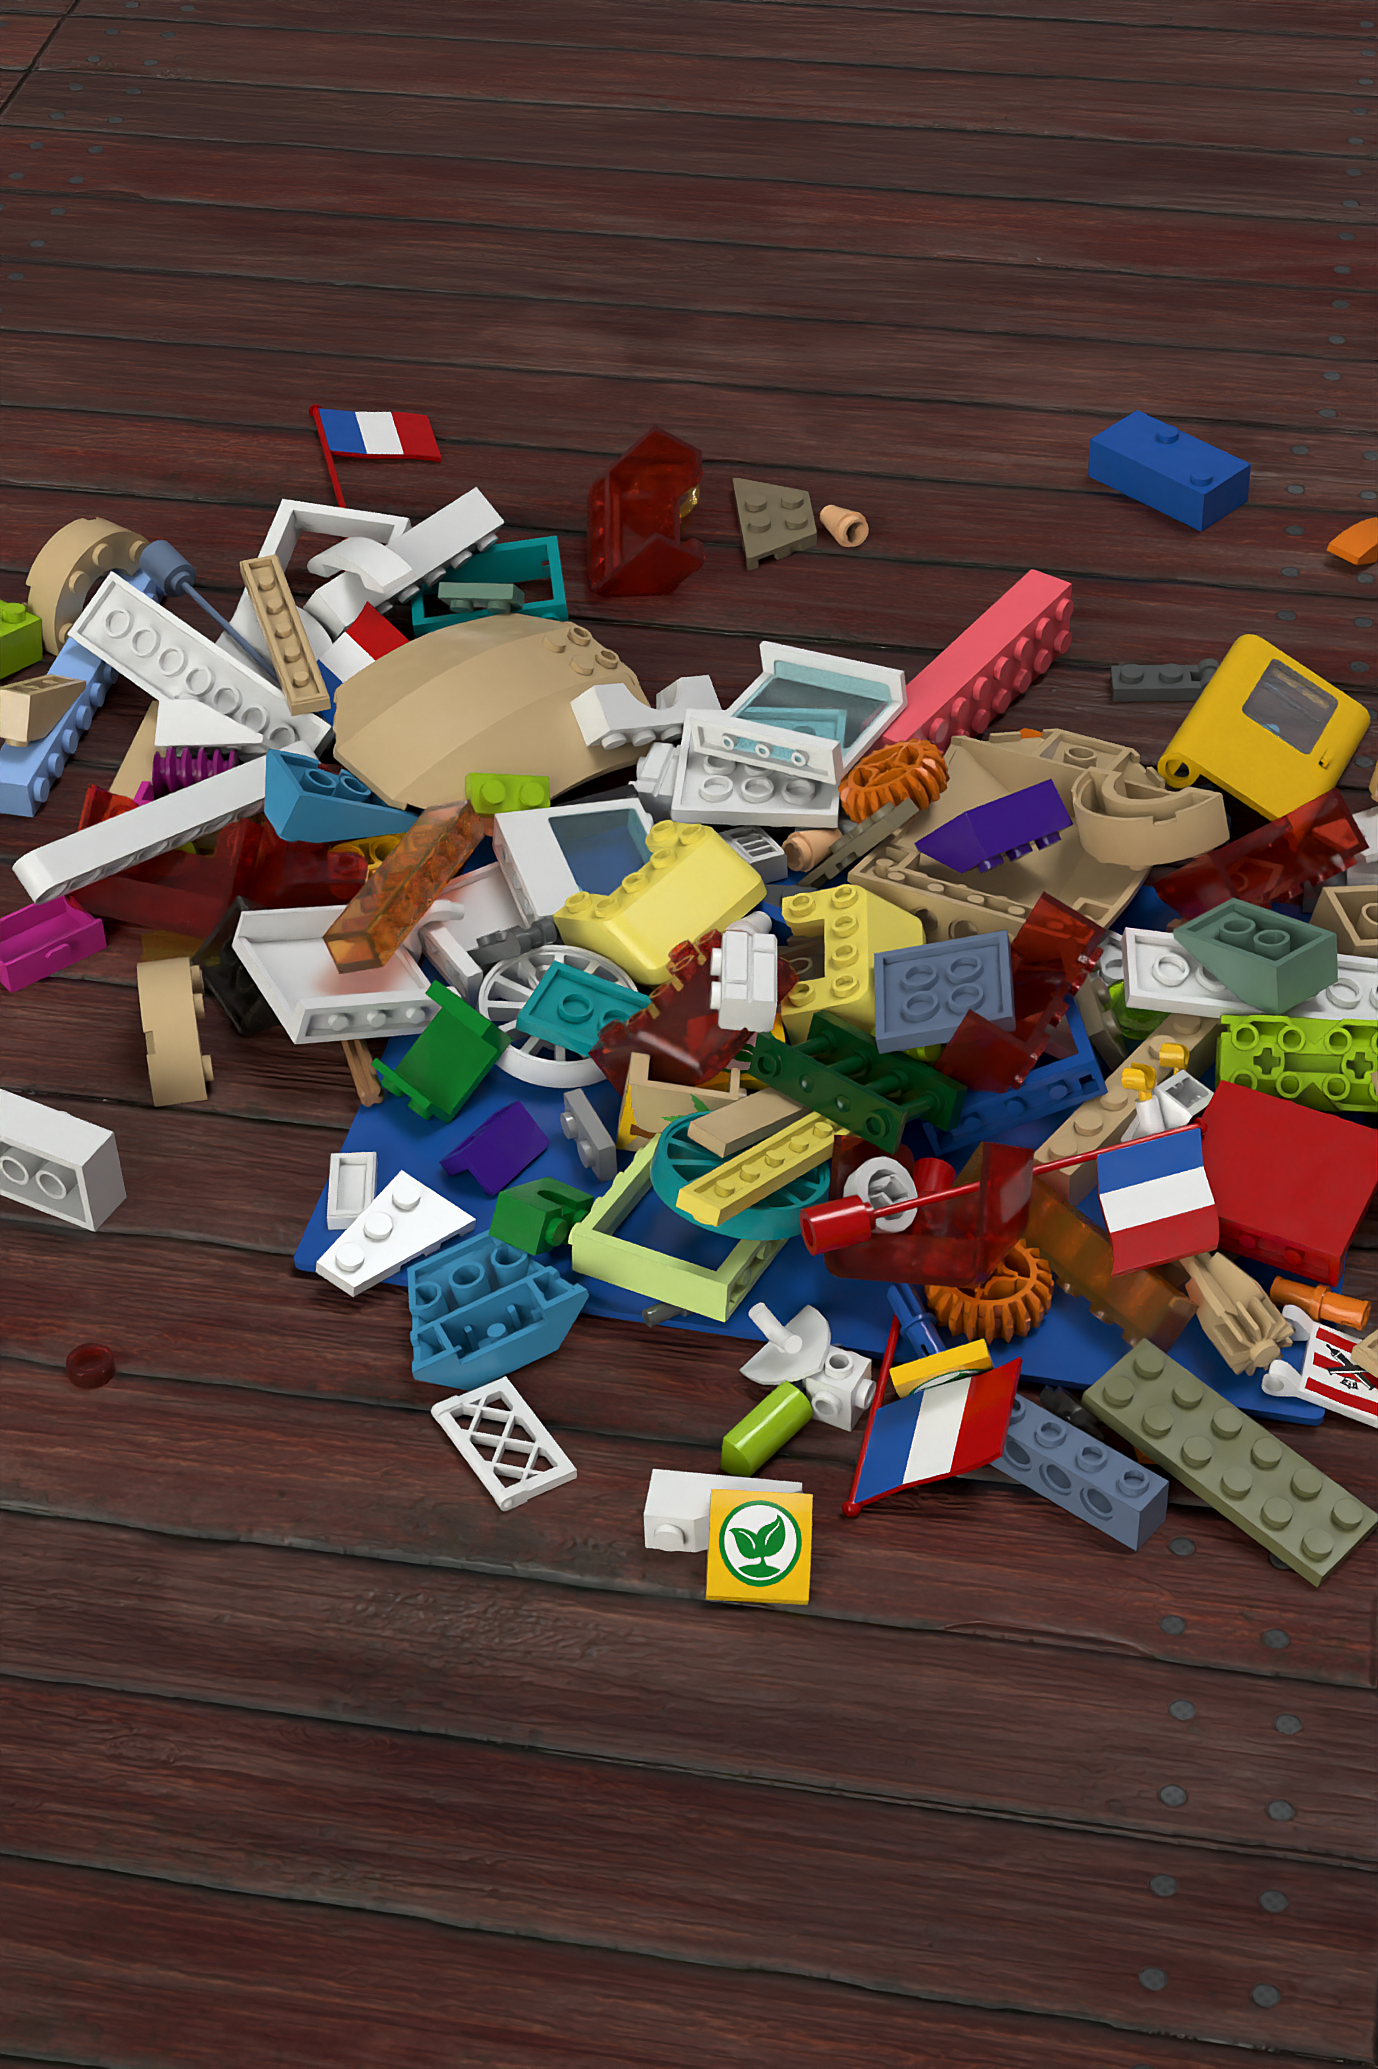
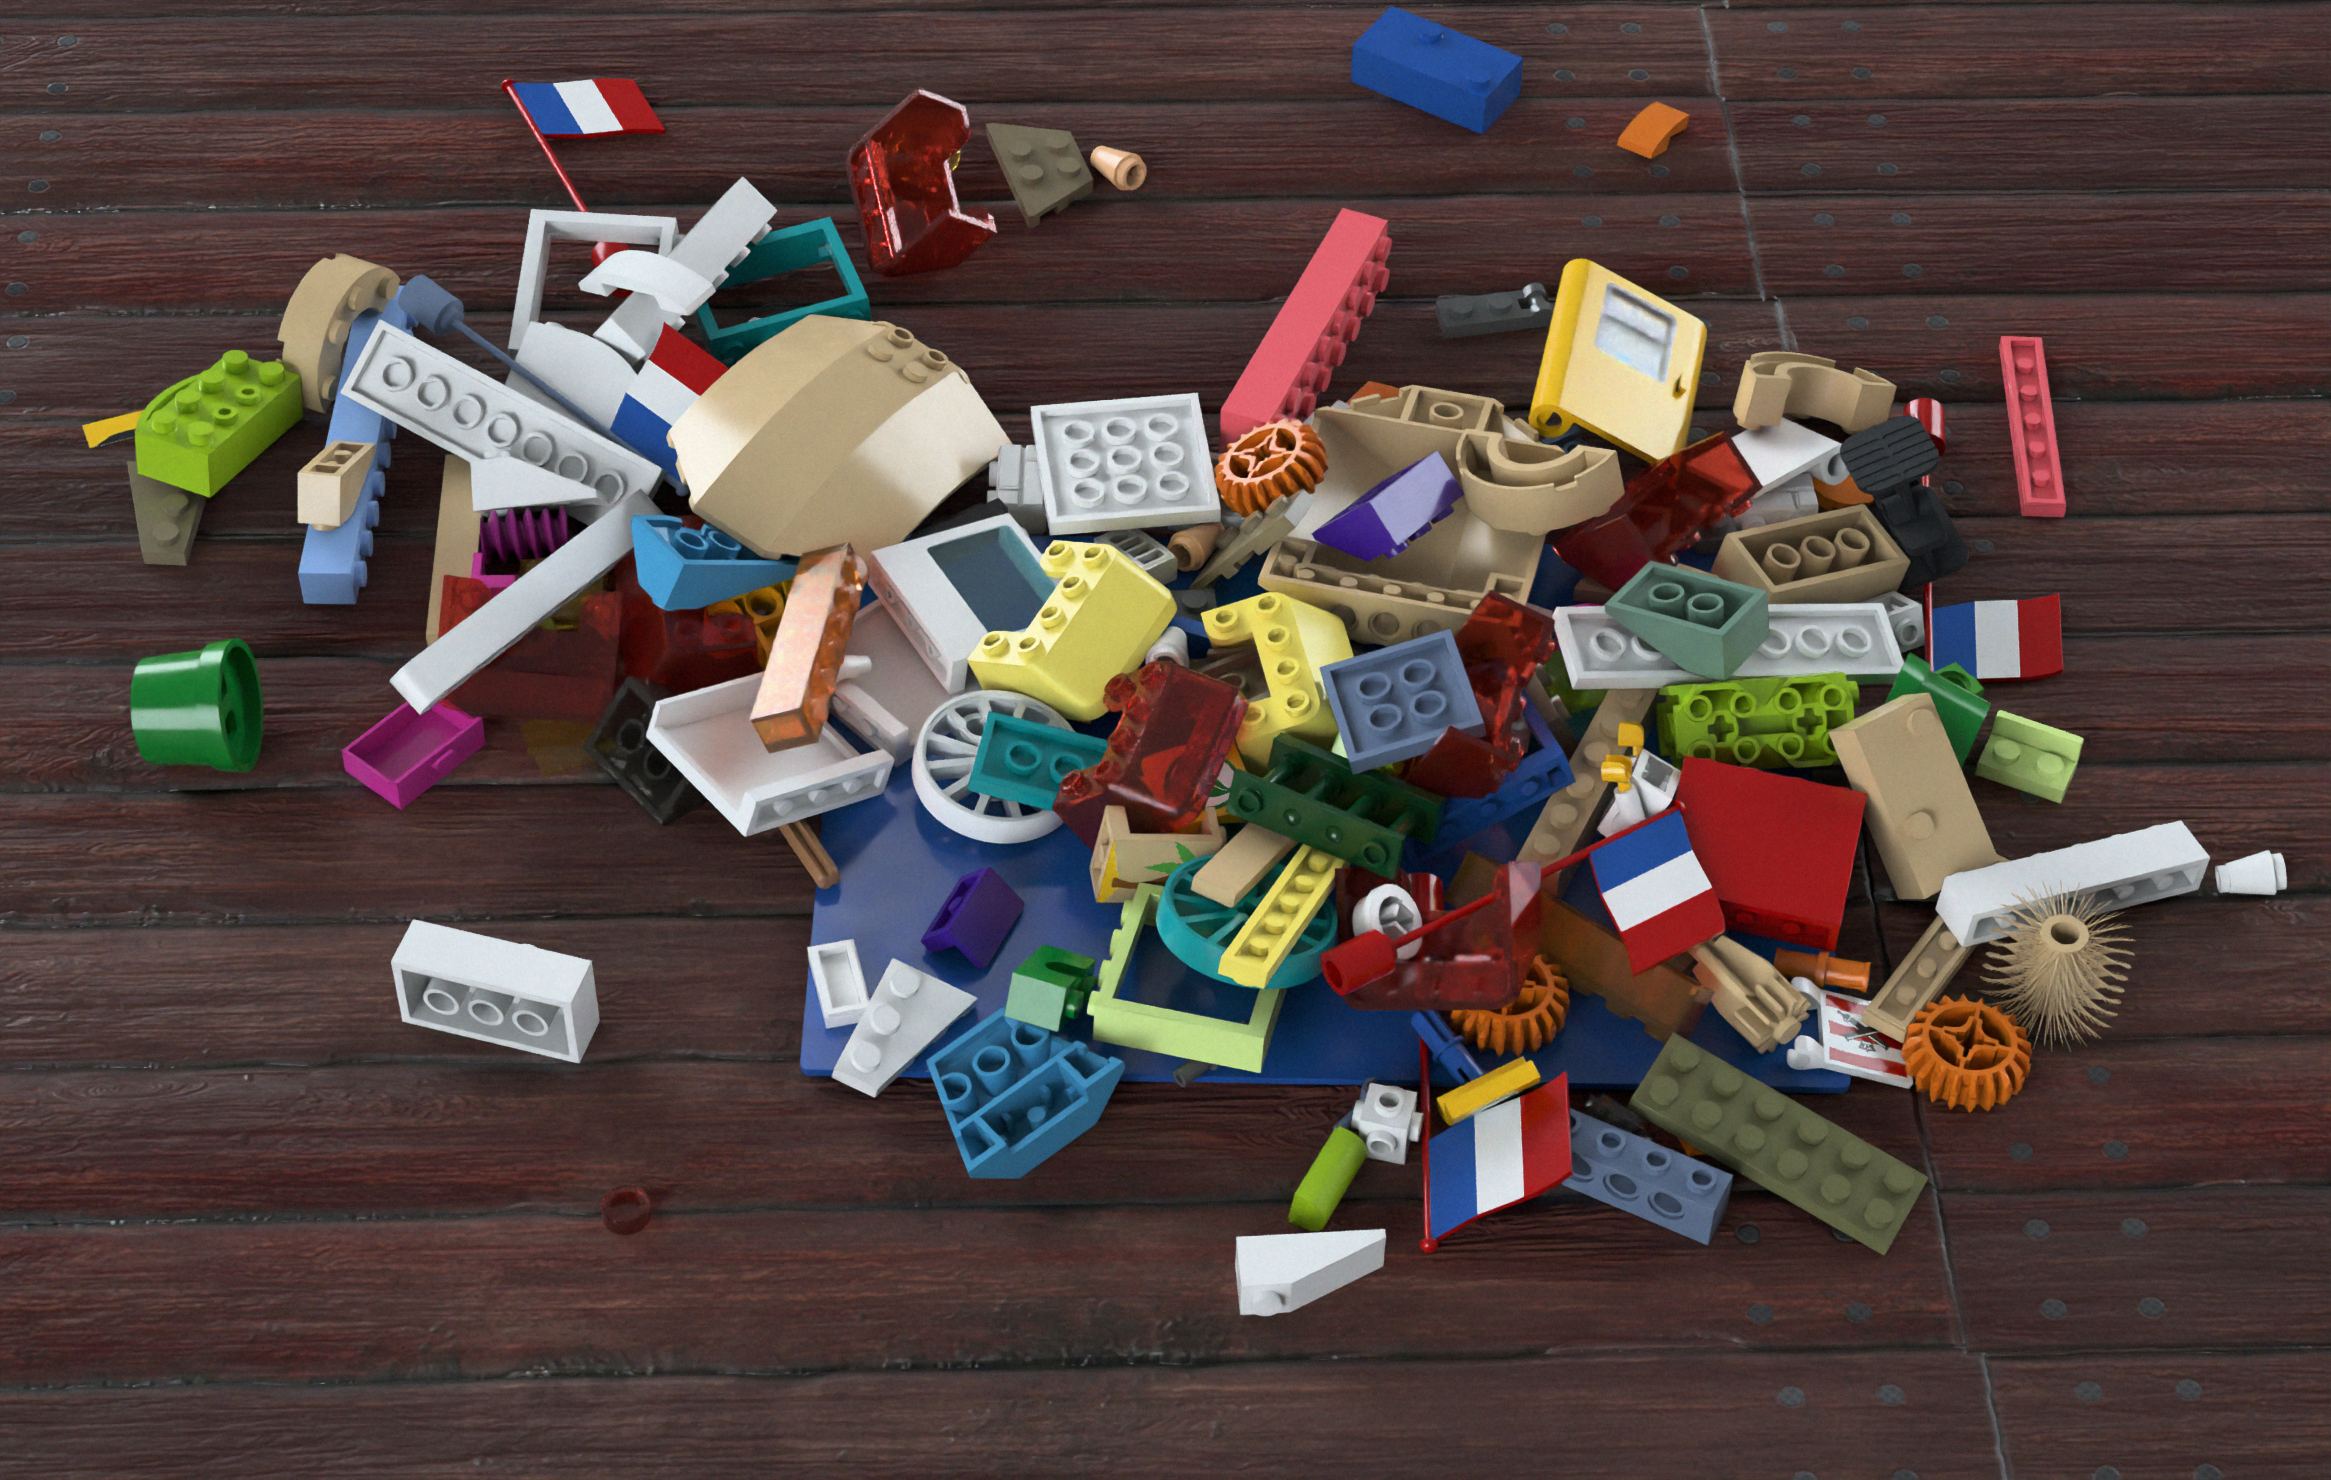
camera: 15 degrees left, 5 degrees up
(170, 1011) = (599, 819): tan brick -> none
(284, 635) = (585, 371): tan tile -> none
(446, 1058) = (899, 828): green panel -> none
(496, 597) = (796, 300): sand green plate -> none
(506, 793) = (878, 527): lime plate -> none
(512, 942) = (934, 695): dark grey plate -> none
(532, 1481) = (1112, 1264): white window -> none
(592, 1139) = (1067, 891): light grey plate -> none
(614, 717) = (964, 425): white arch -> none
(746, 981) = (1207, 717): white brick -> none
(759, 1546) = (1359, 1299): slope -> none
(792, 1350) = (1333, 1092): white shield -> none
(804, 714) = (1160, 402): panel -> none

